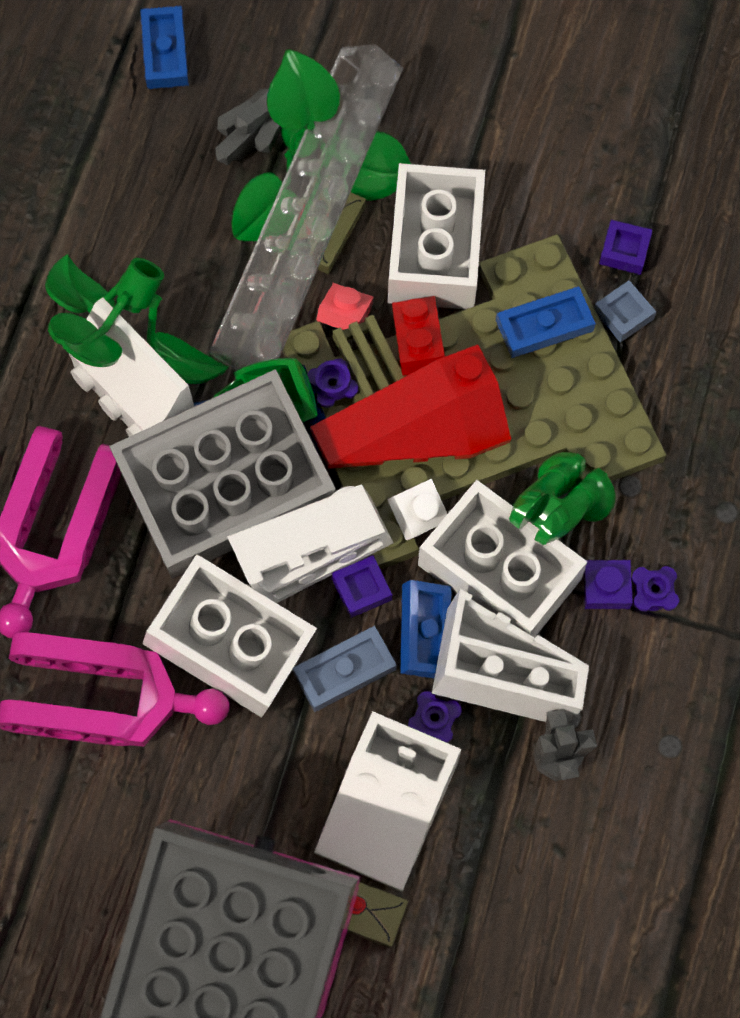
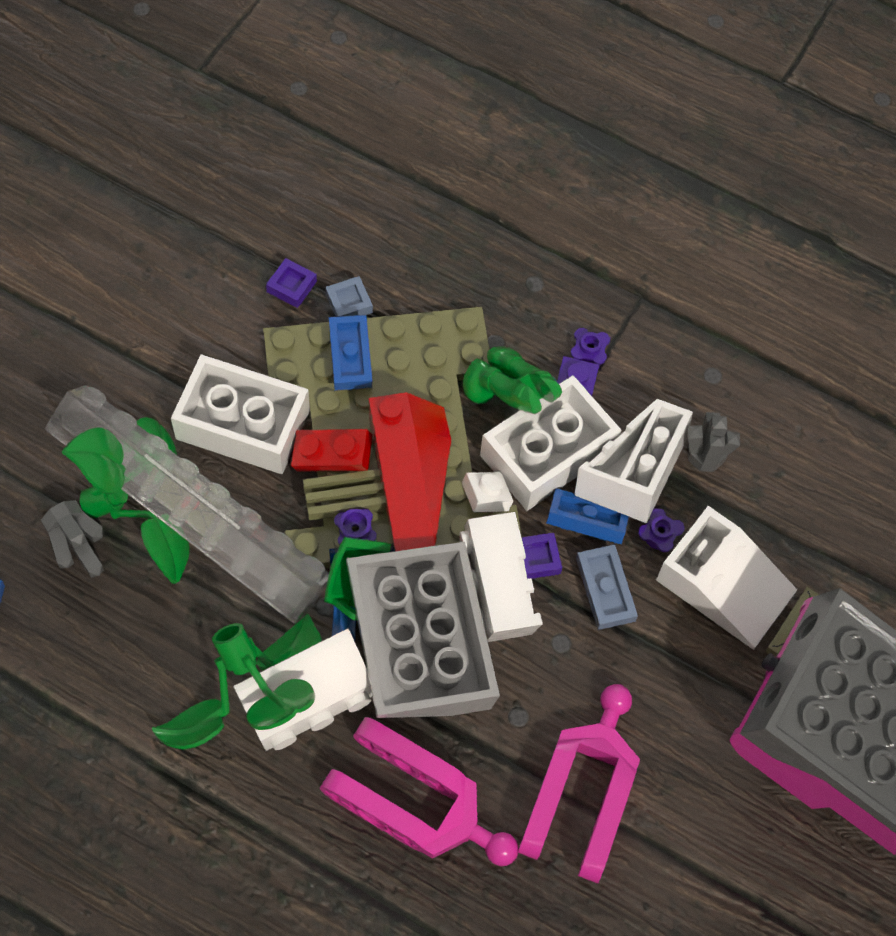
camera: 80 degrees left, 5 degrees down
(228, 635) = (567, 663): white brick -> none
(344, 306) = (280, 506): coral plate -> none

